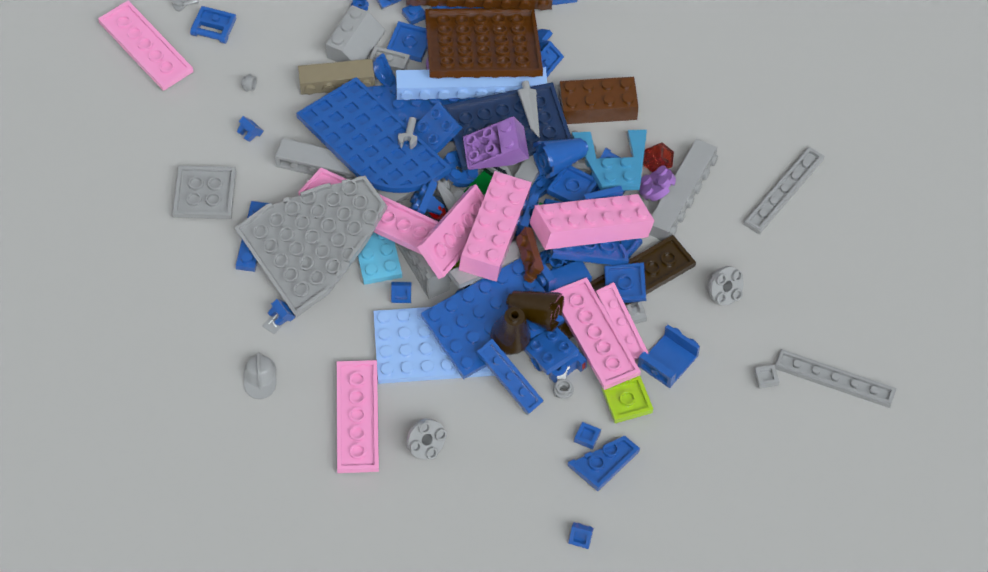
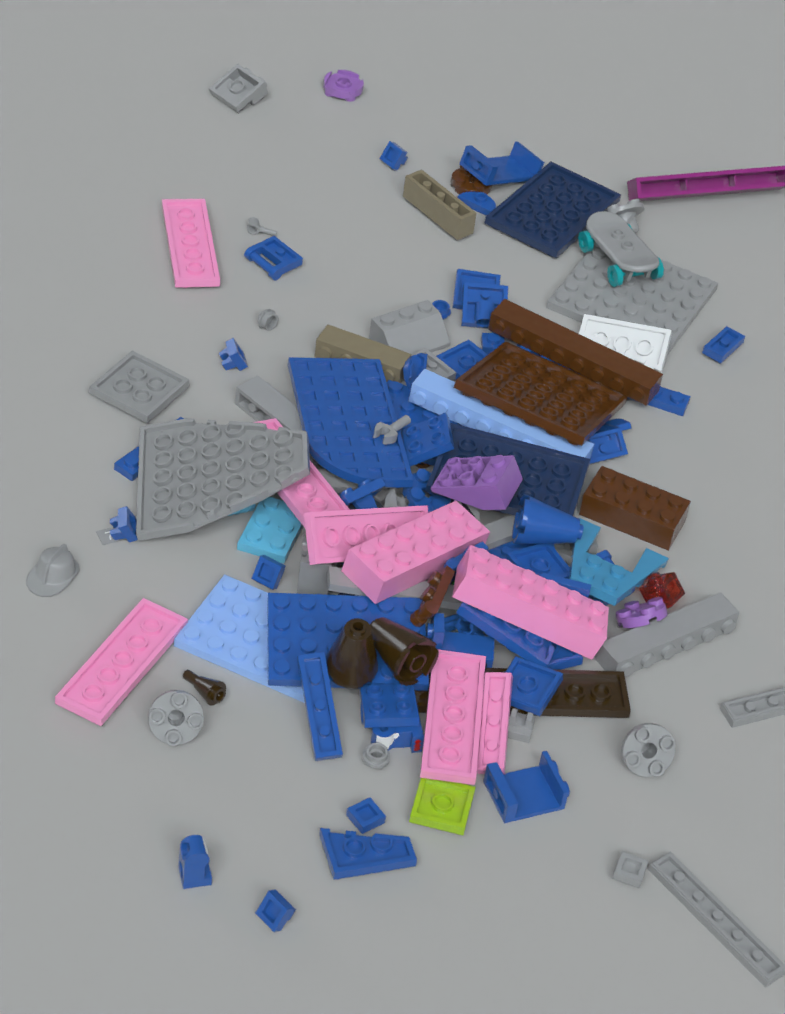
camera: 25 degrees right, 15 degrees down
(426, 403) = (210, 689): none -> dark brown cone
(512, 534) = (194, 862): none -> blue leg
(529, 103) = (547, 464): light grey bar -> none

